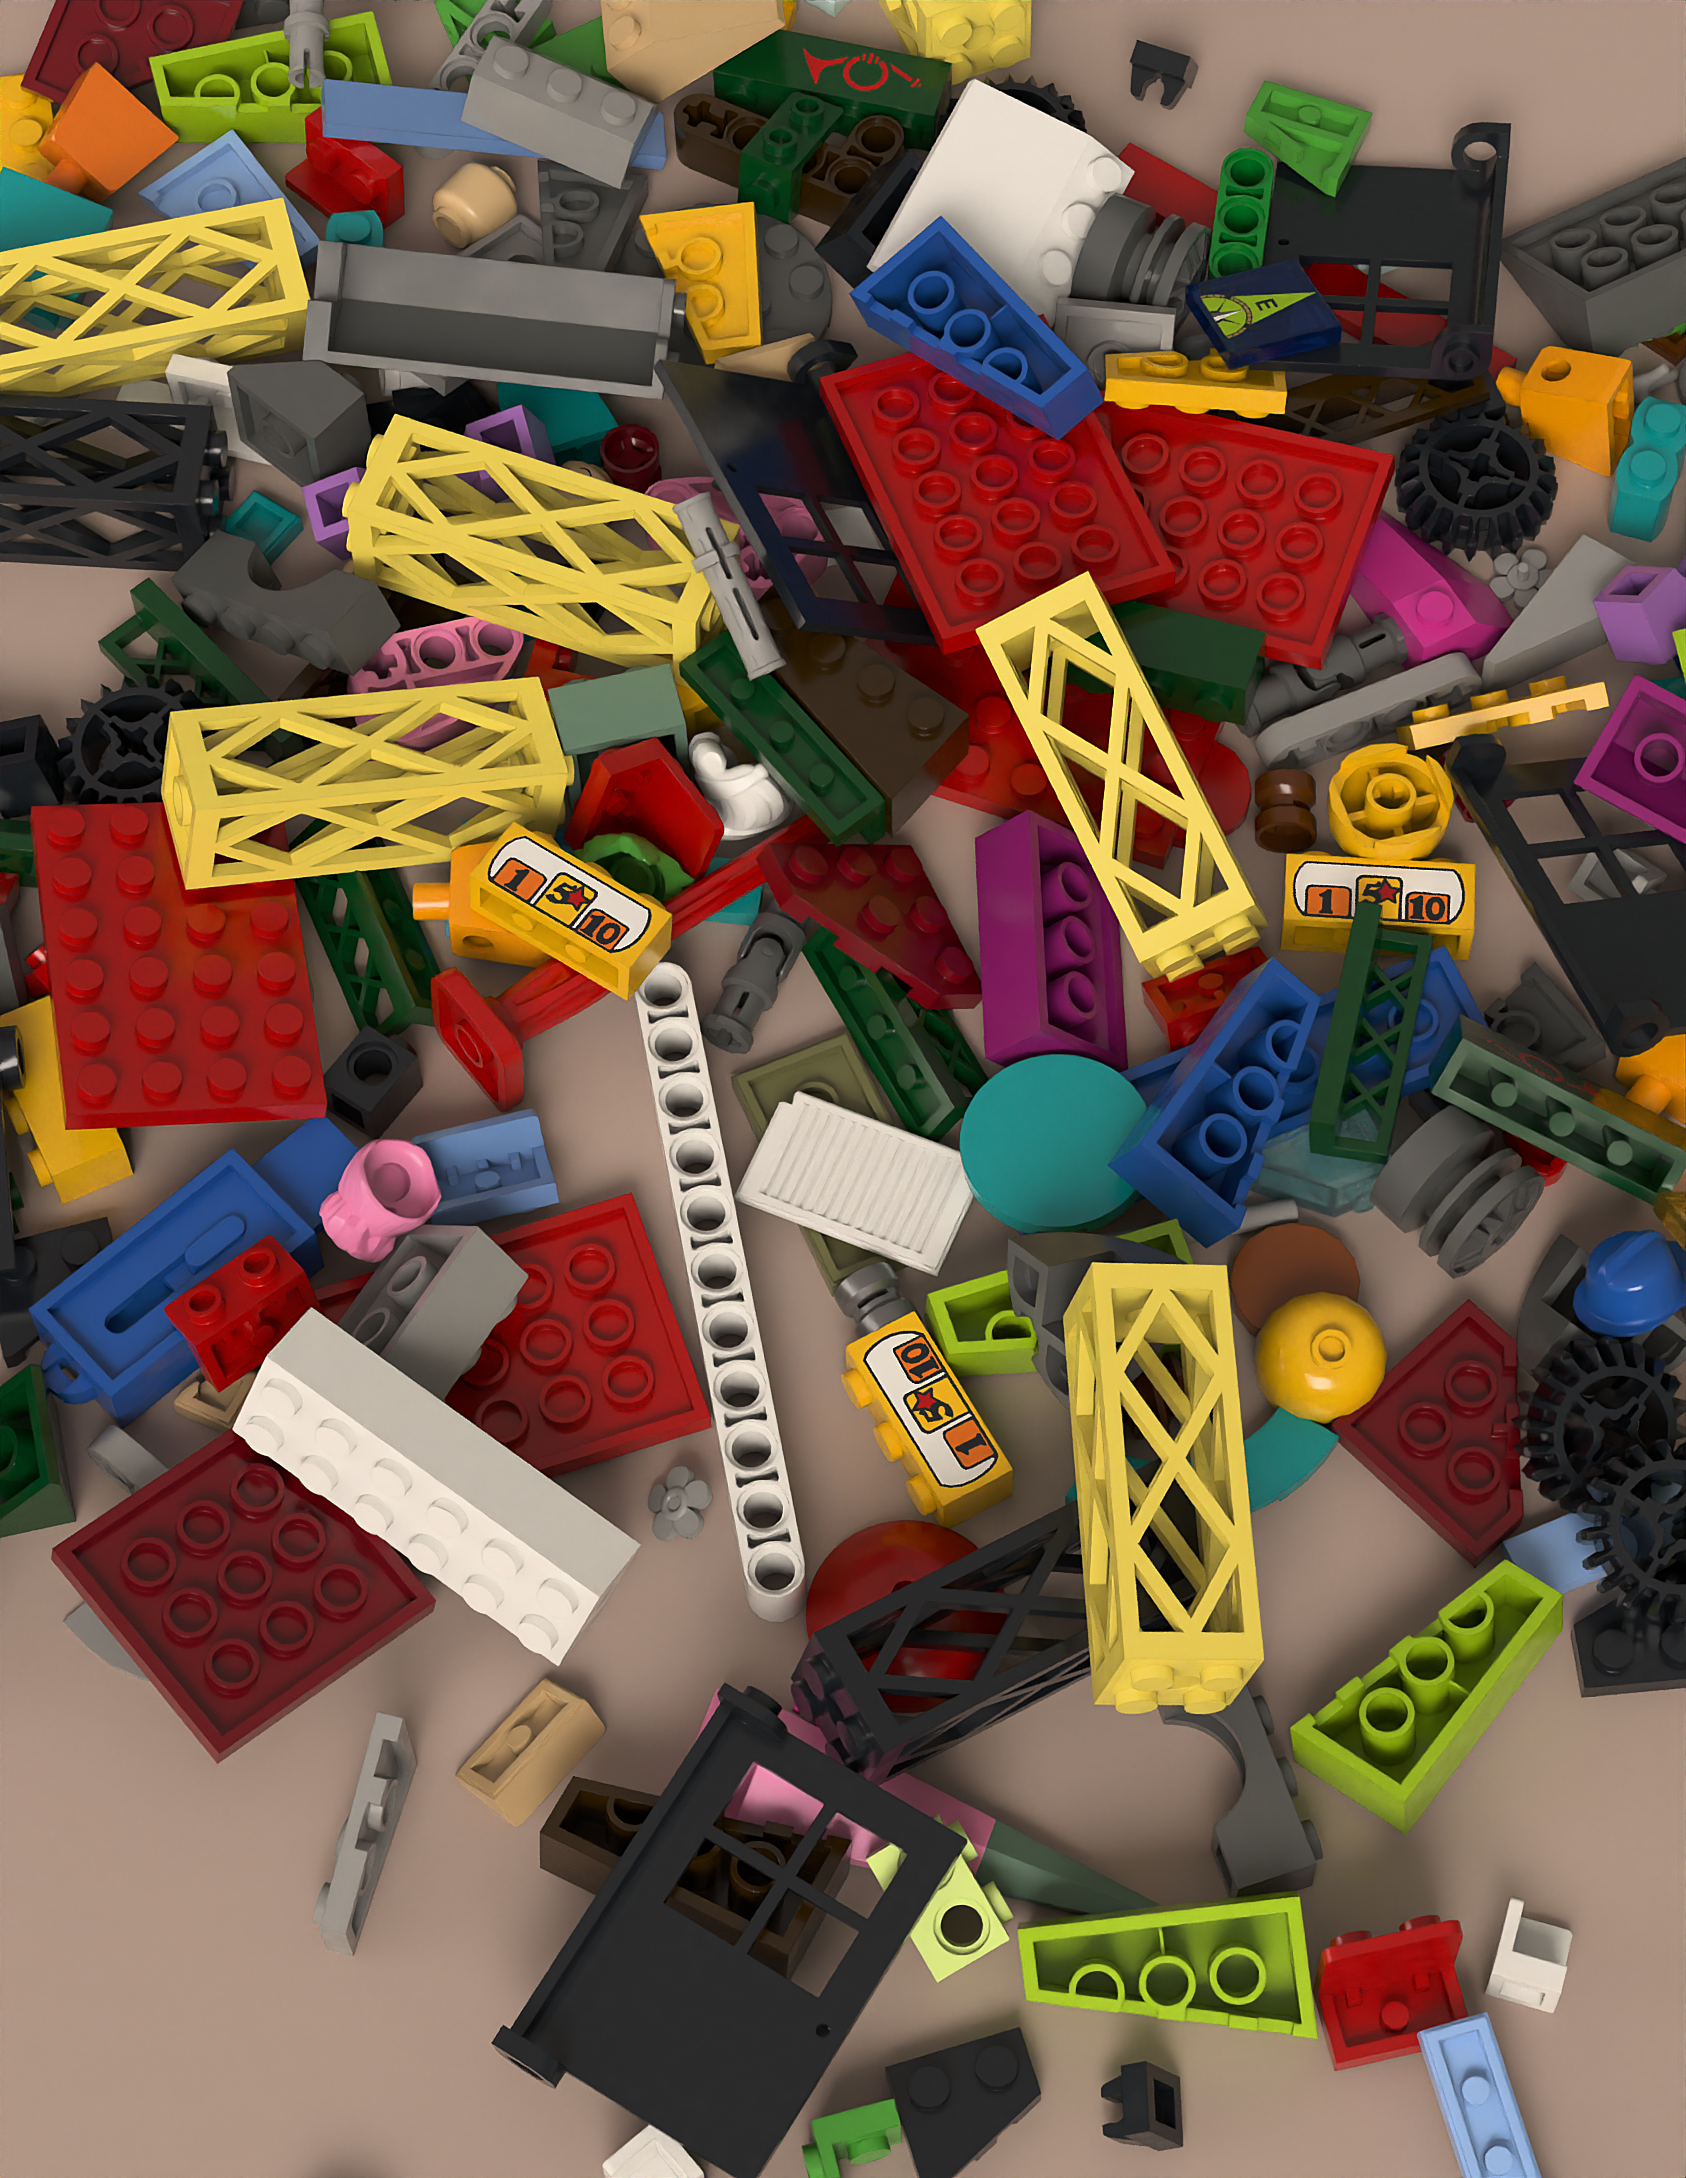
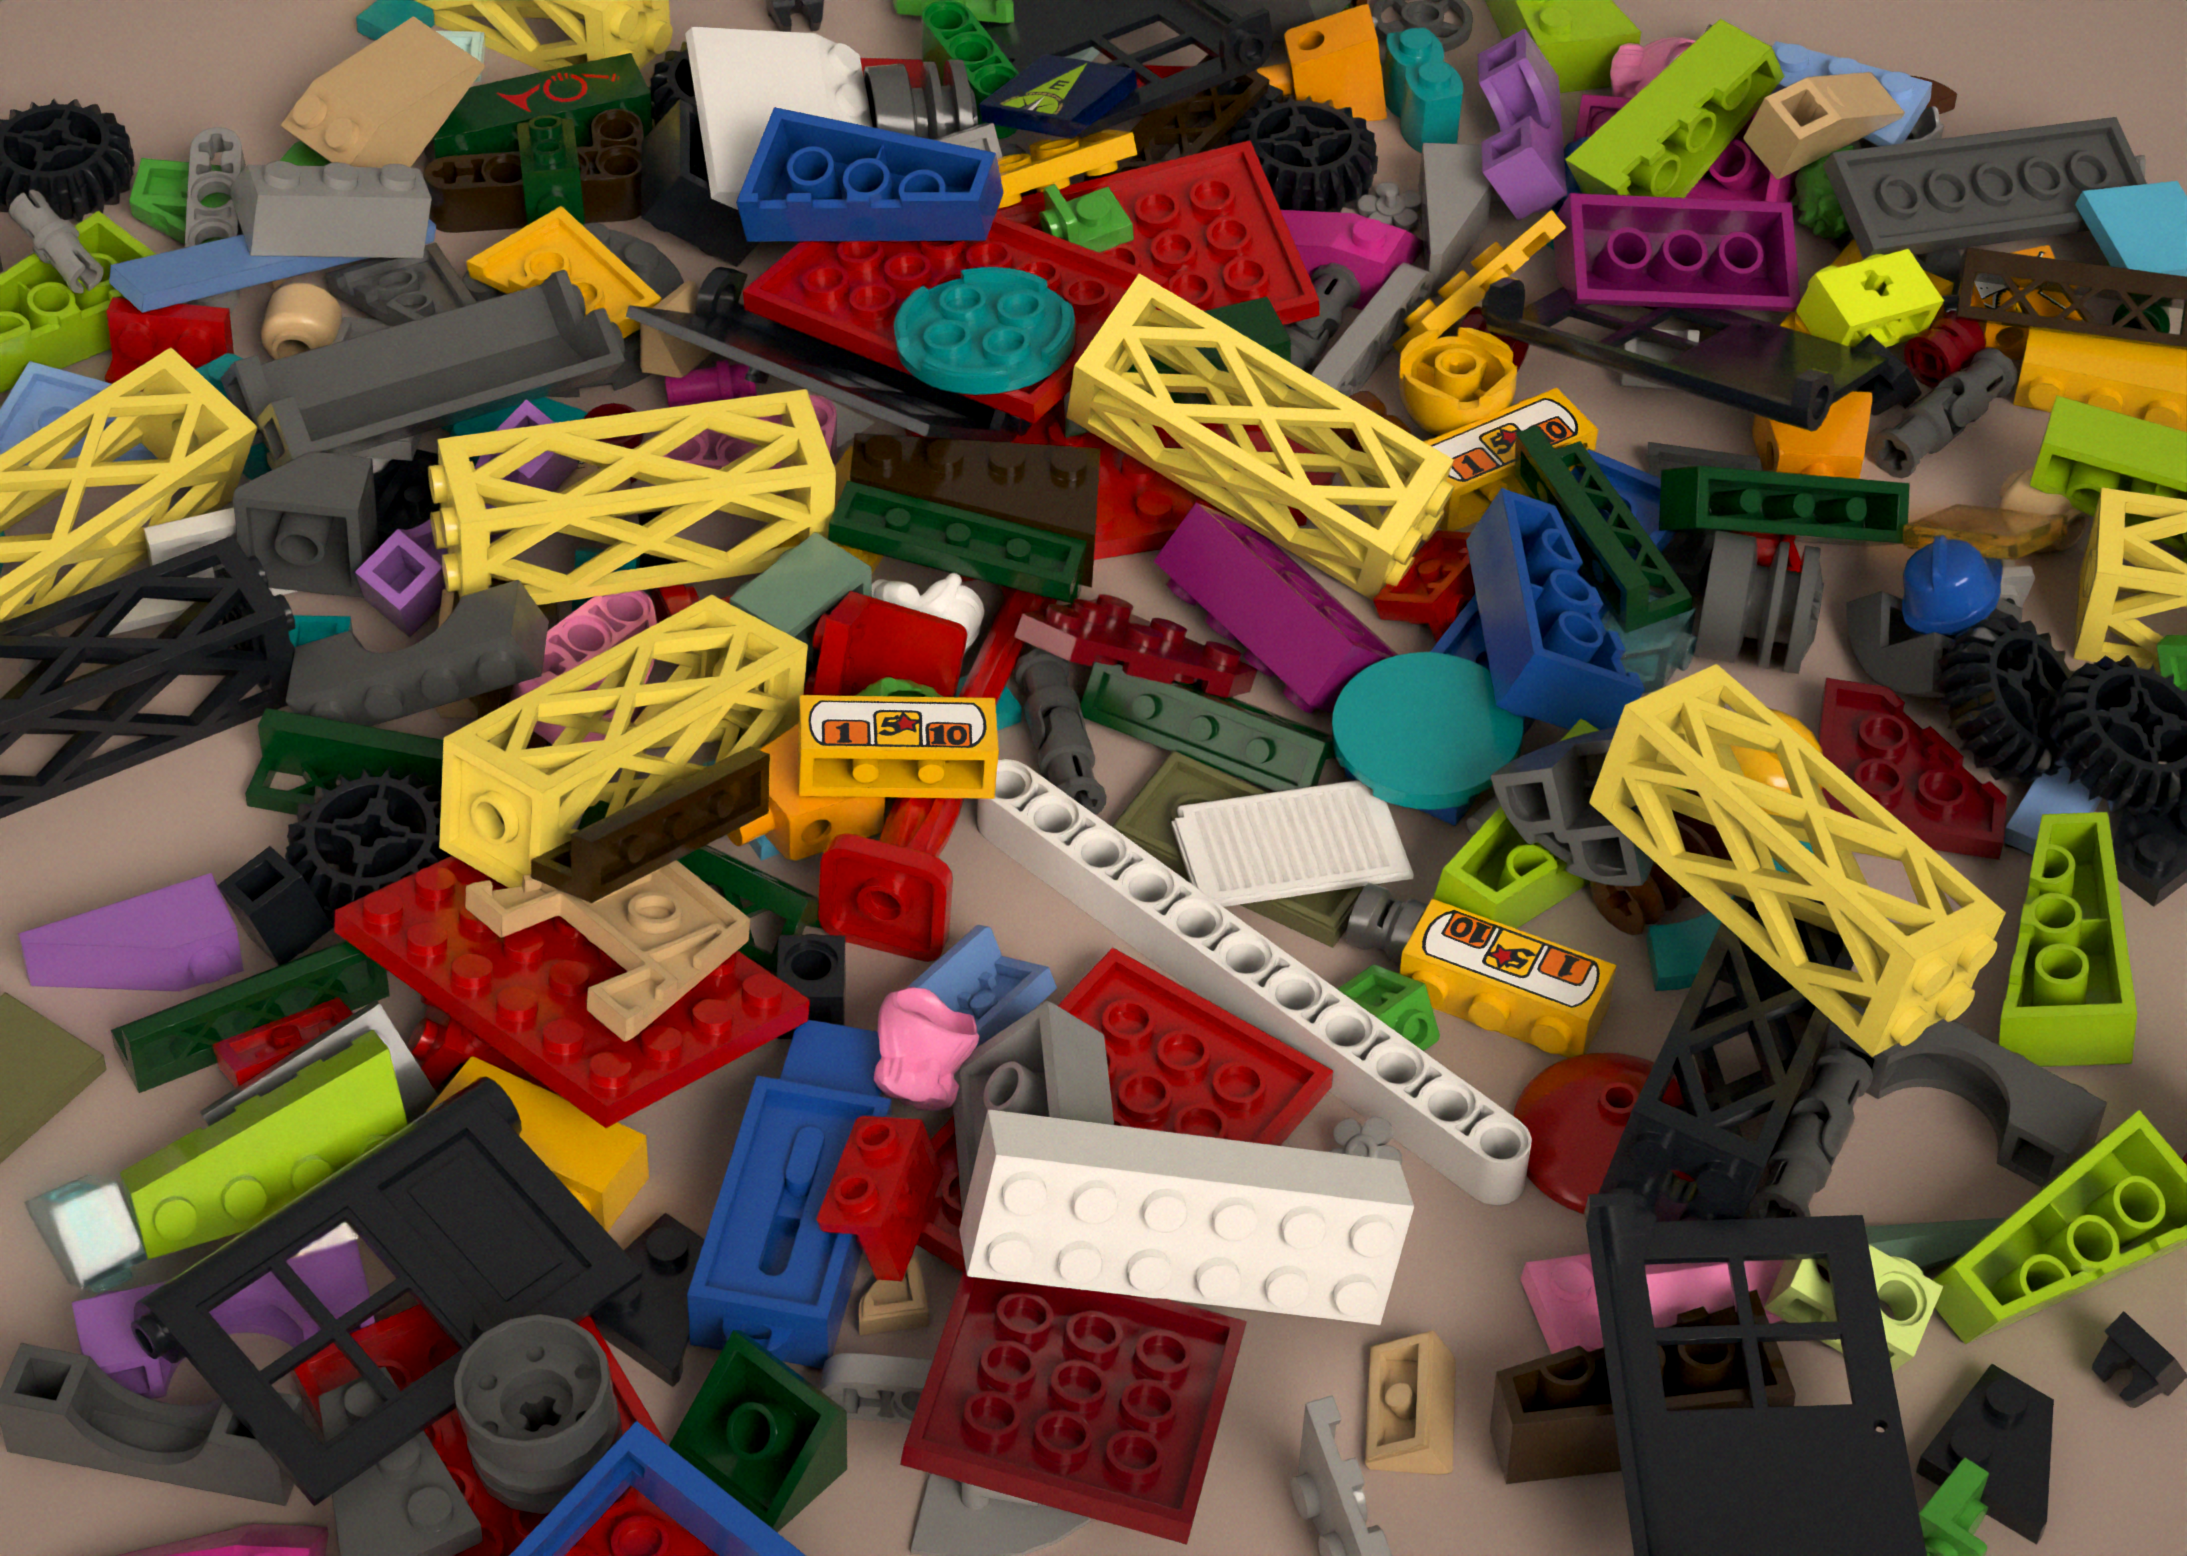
camera: 40 degrees left, 15 degrees down
(244, 963) = (660, 929): none -> tan wing
(313, 881) = (659, 828): none -> dark brown fence
(728, 585) = (842, 429): light grey pin -> none
(806, 1390) = (1396, 1002): none -> bright green bracket
(966, 540) = (985, 332): none -> teal tile
(1060, 1725) = (1812, 1136): none -> dark grey piece
(1175, 463) = (1088, 221): none -> bright green bracket

